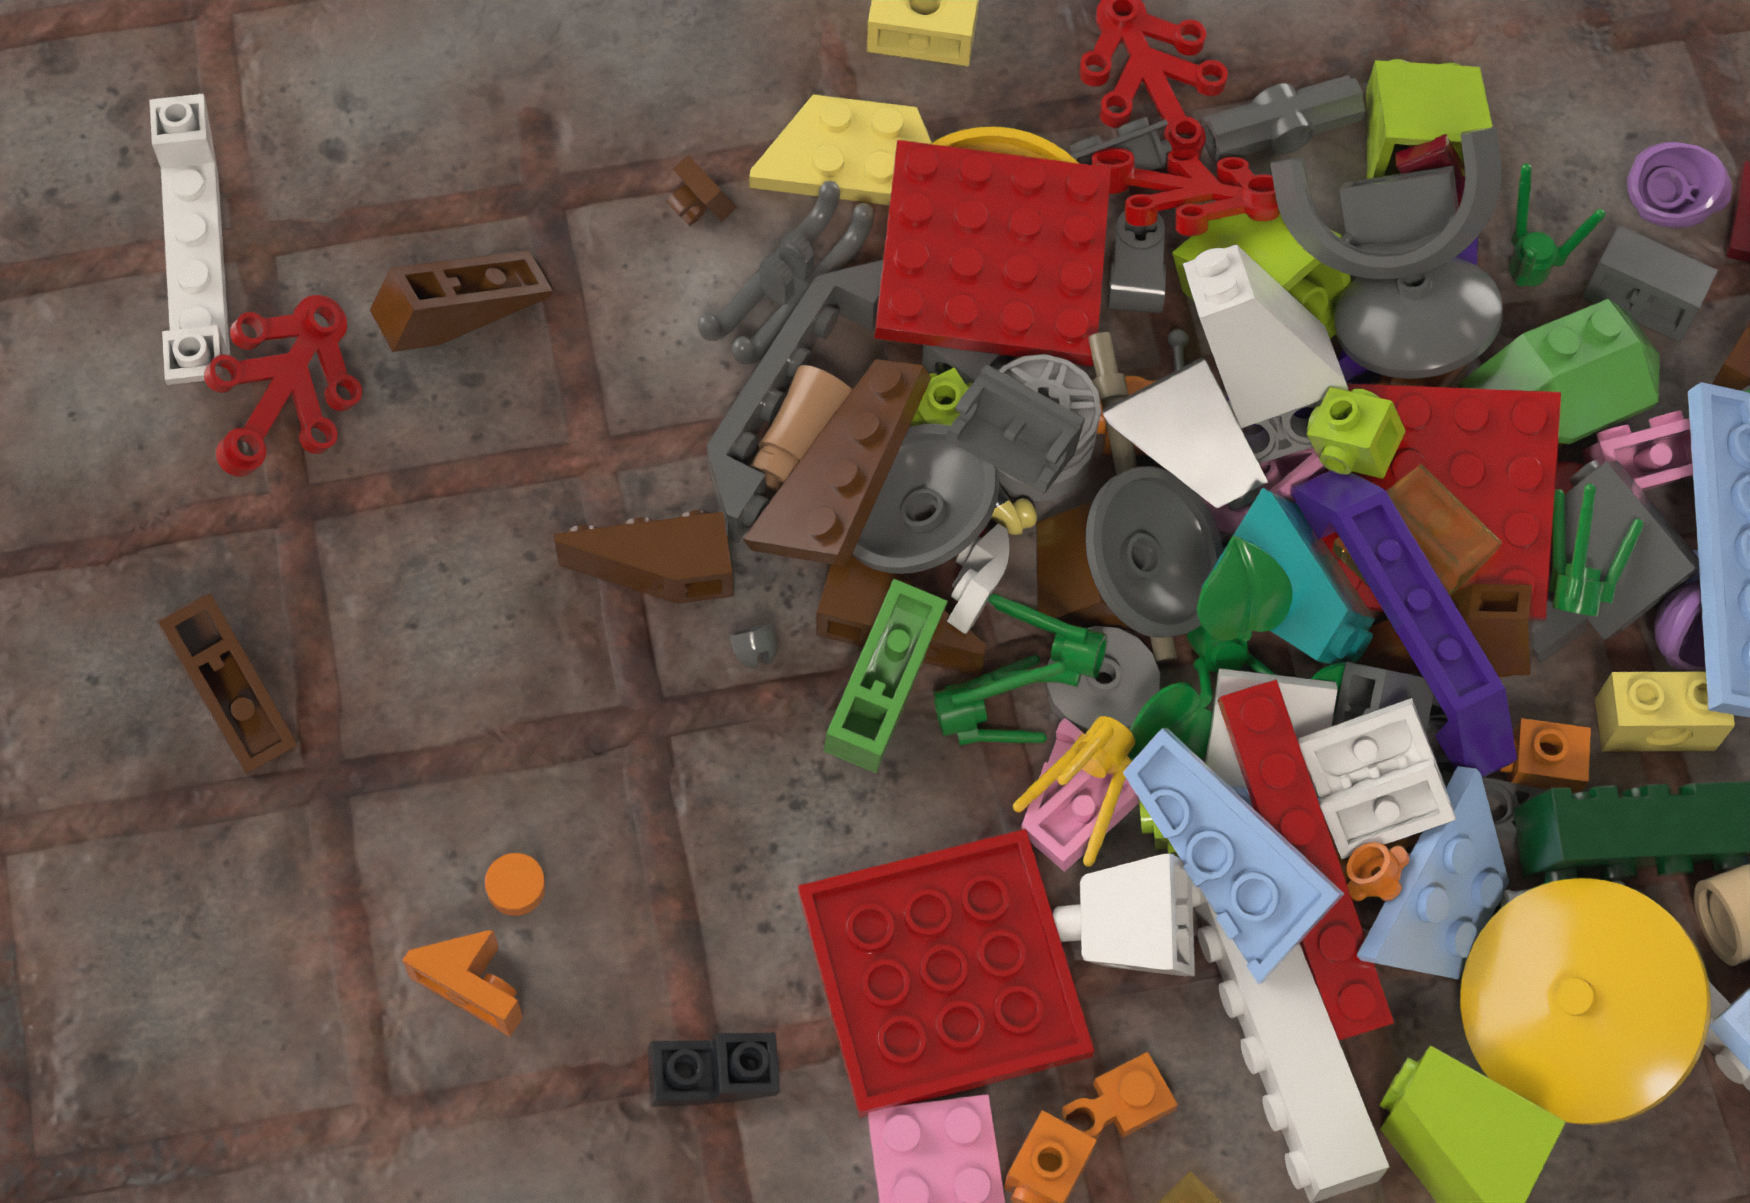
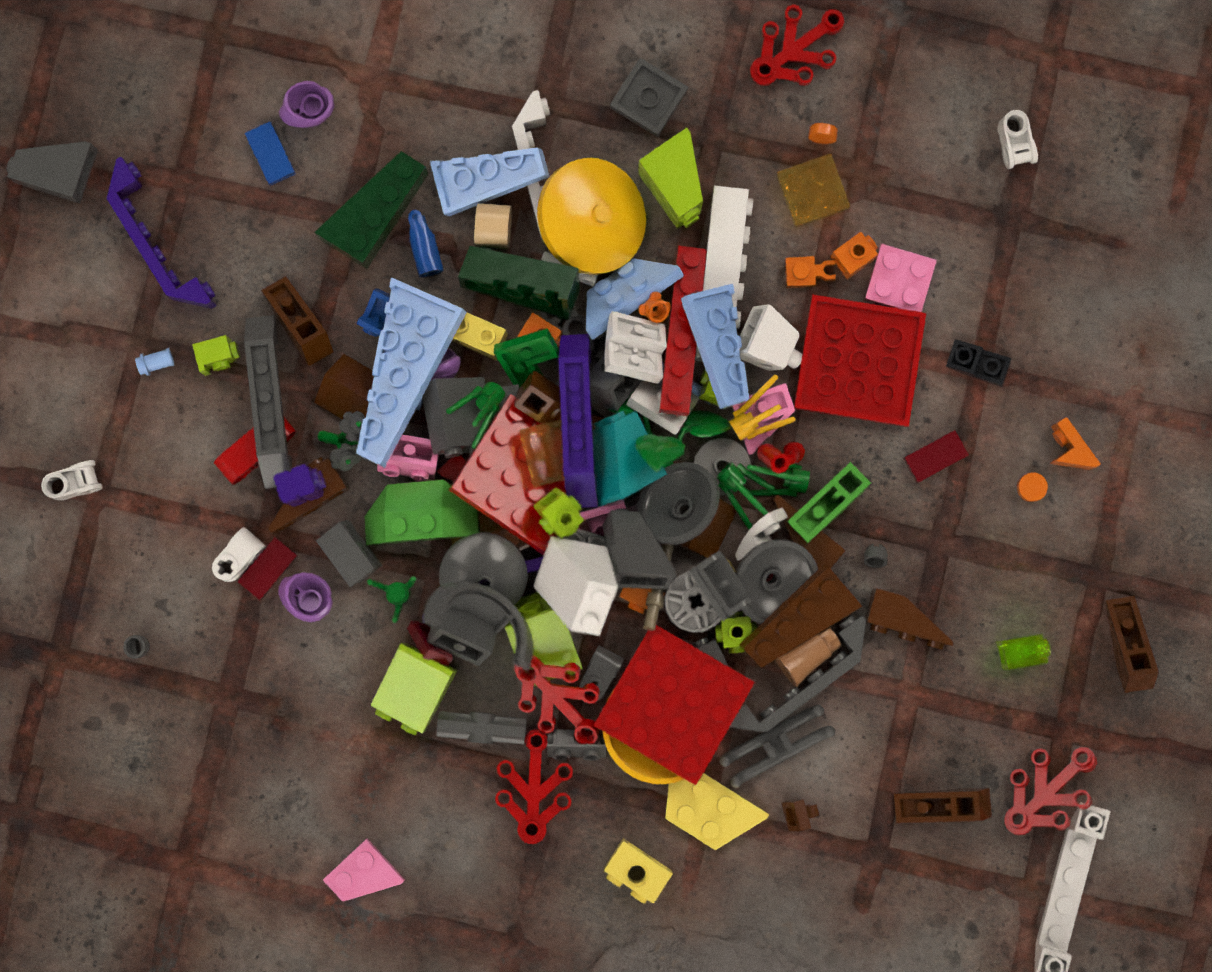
camera: 150 degrees left, 20 degrees up
(419, 581) = (1023, 651): none -> clear neon green slope
(720, 863) = (936, 456): none -> dark red tile
(1019, 705) = (780, 461): none -> red plant
(1558, 693) = (523, 353): none -> green plate

